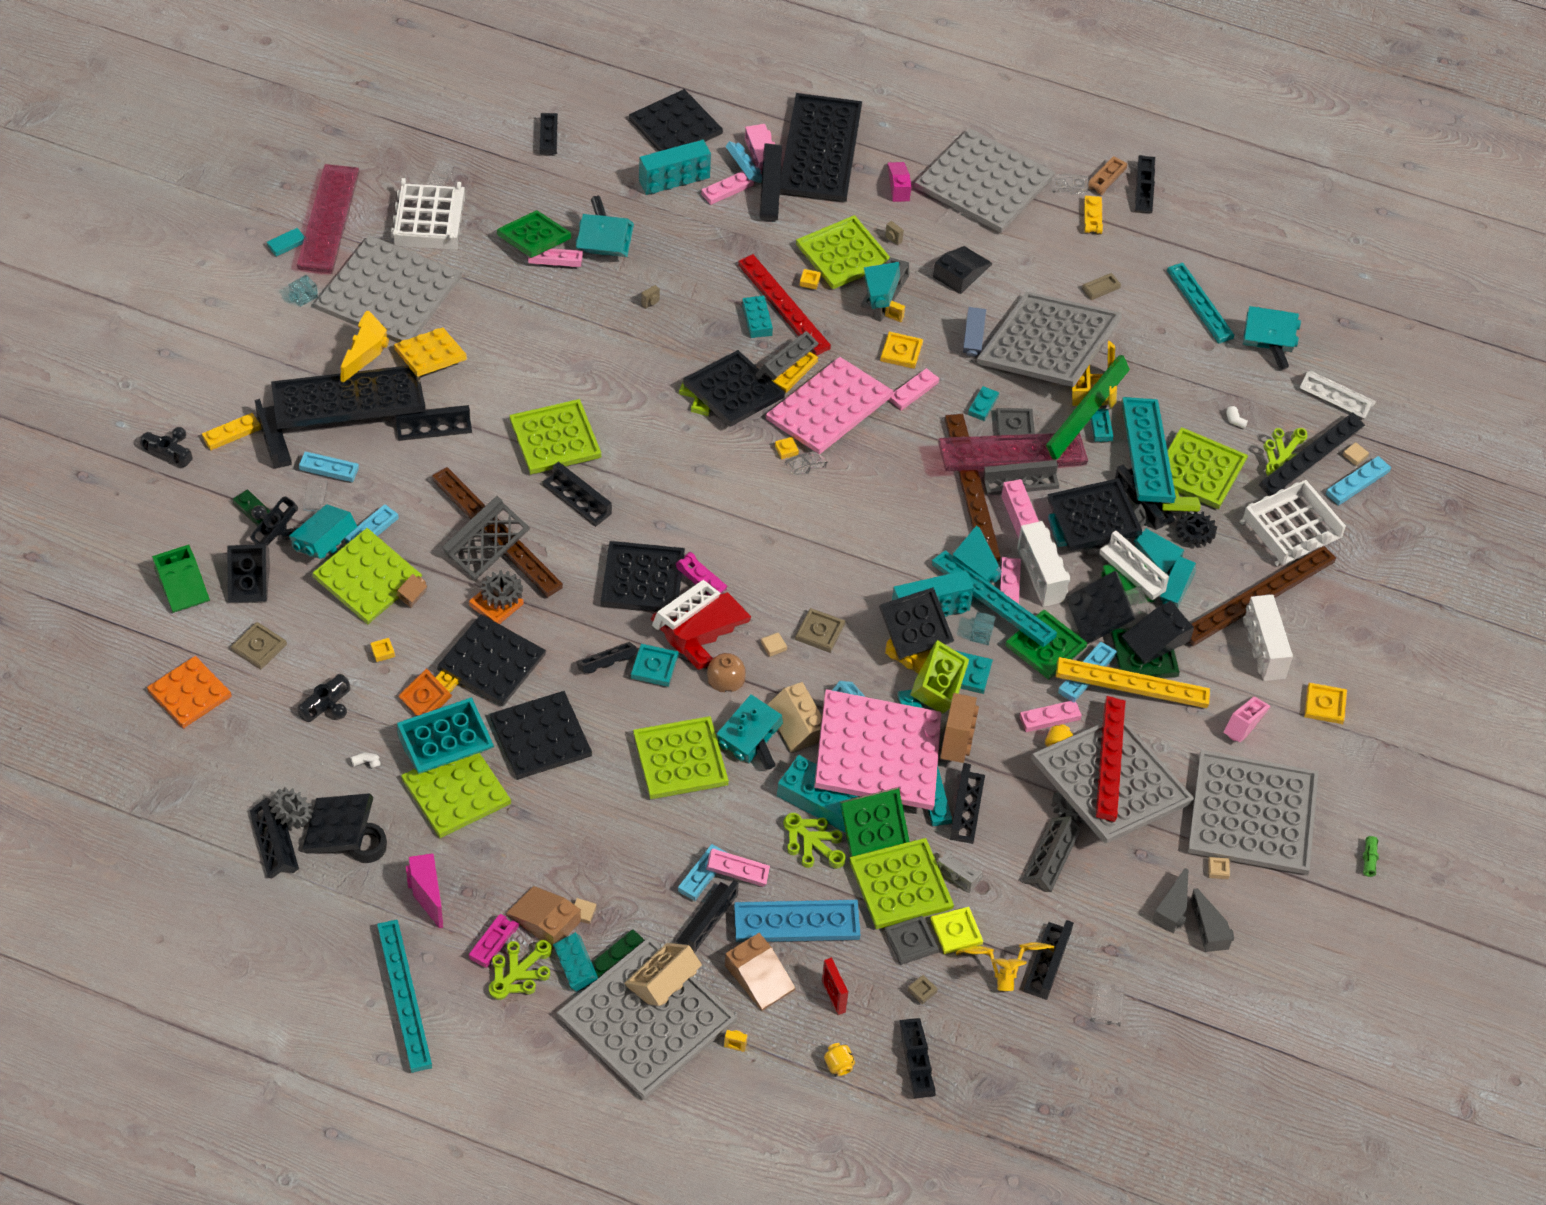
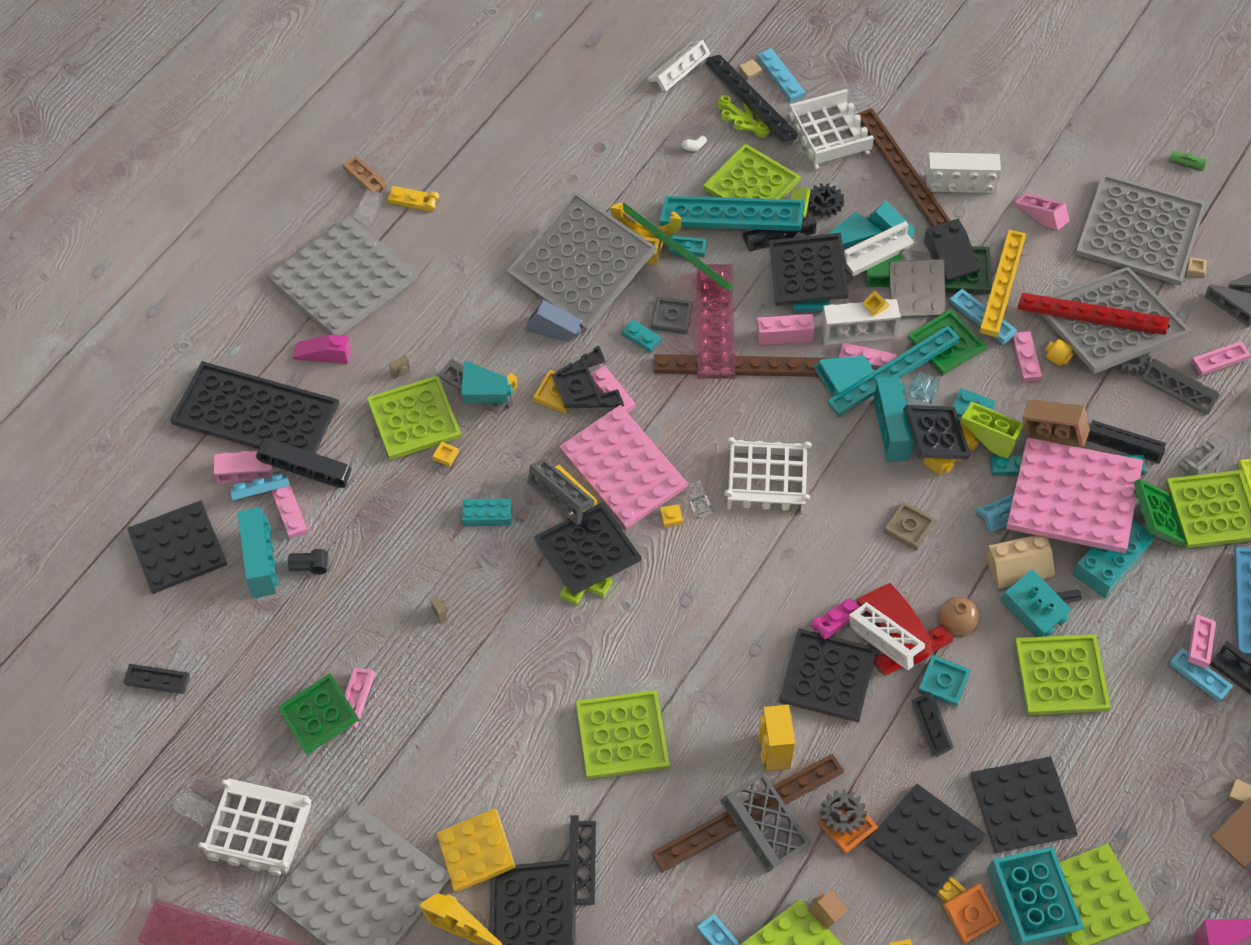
camera: 75 degrees left, 5 degrees up
(562, 531) = (776, 738): none -> yellow brick
(582, 491) = (704, 716): black fence -> none
(603, 233) = (344, 638): teal piece -> none
(678, 208) = (314, 562): none -> black piece
(774, 644) = (924, 569): tan tile -> none
(782, 302) = (467, 487): red plate -> none
(813, 838) = (1162, 575): lime plant -> none
(845, 486) = (767, 497): none -> white window
(908, 356) = (577, 385): none -> black wing
(960, 268) = (461, 319): black slope -> none
(1025, 471) = (738, 322): dark grey fence -> none
(1056, 561) = (875, 303): none -> yellow slope
(1096, 888) = (1220, 358): none -> bright pink plate
(1101, 286) = (508, 211): dark tan tile -> none
(1145, 184) = (384, 149): black slope -> none
(1200, 303) = (545, 140): teal tile -> none
(1272, 331) = (605, 90): teal piece -> none
(1325, 703) = (1024, 154): yellow tile -> none

